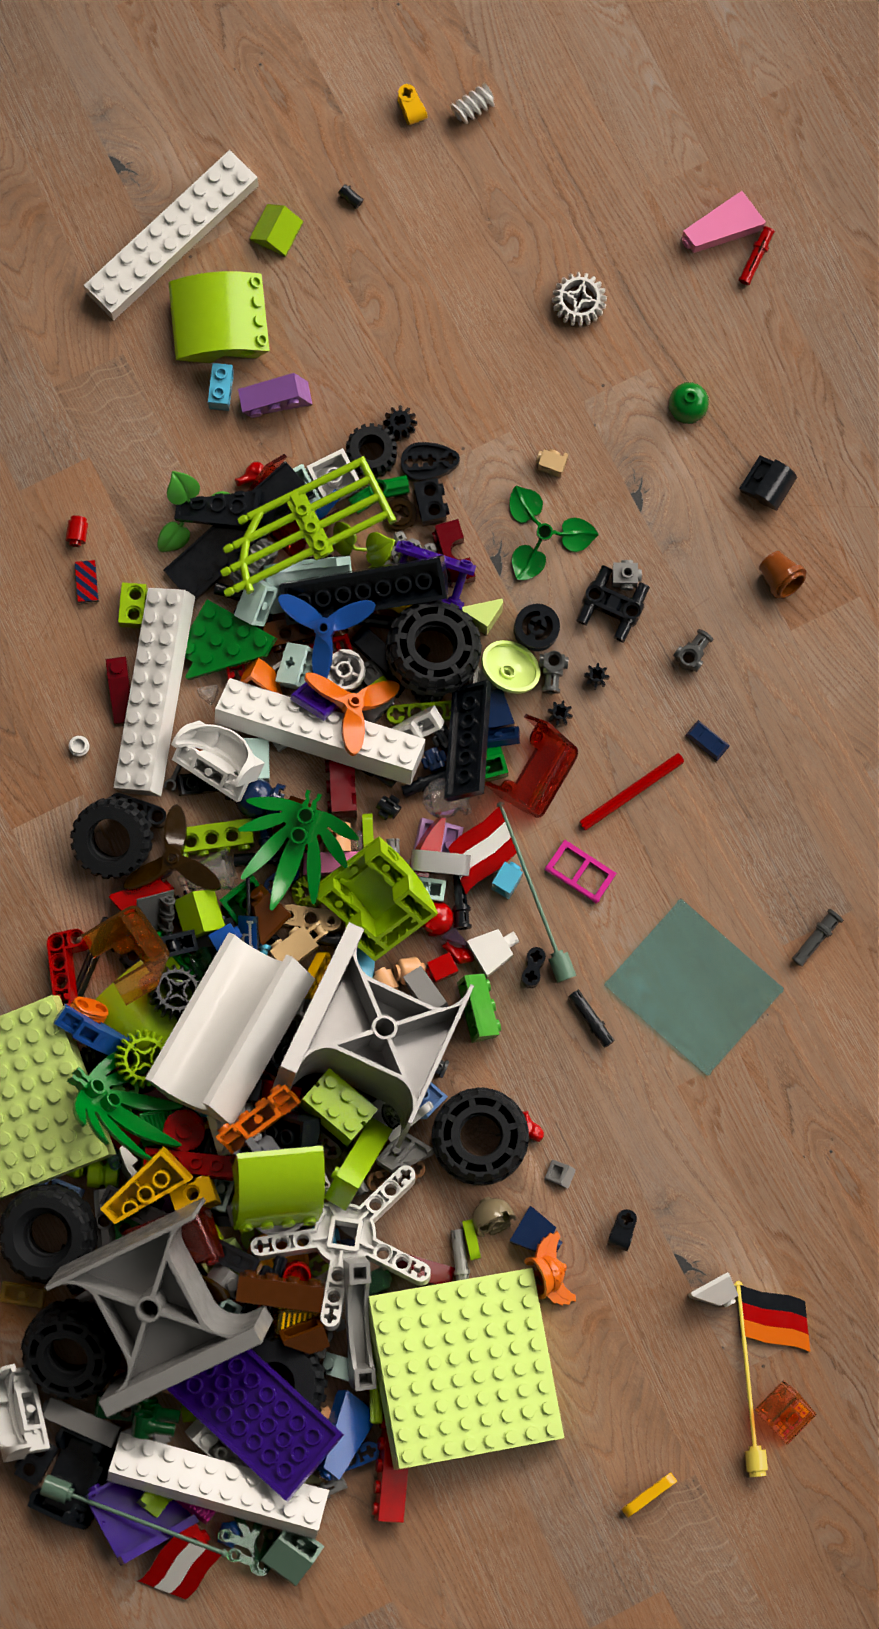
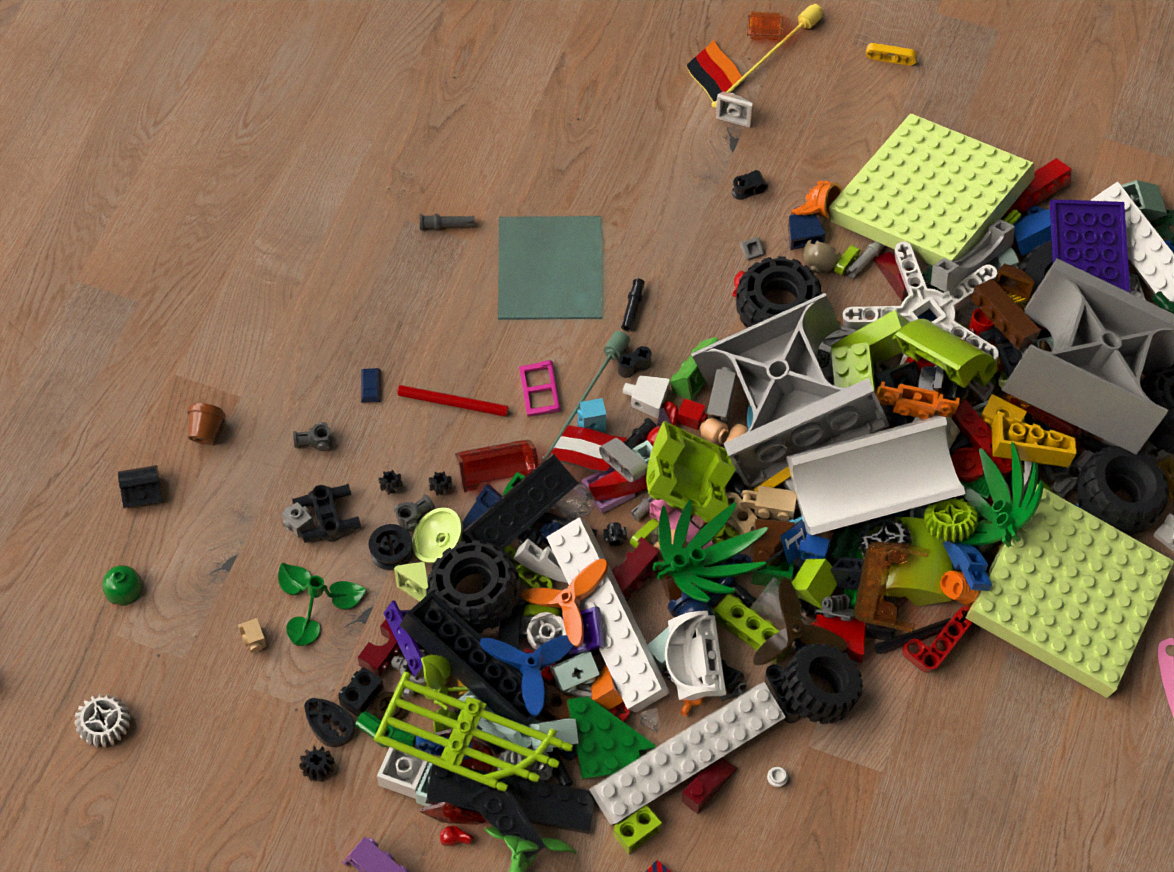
camera: 130 degrees left, 20 degrees down
(376, 435) = (352, 748): black tyre -> none

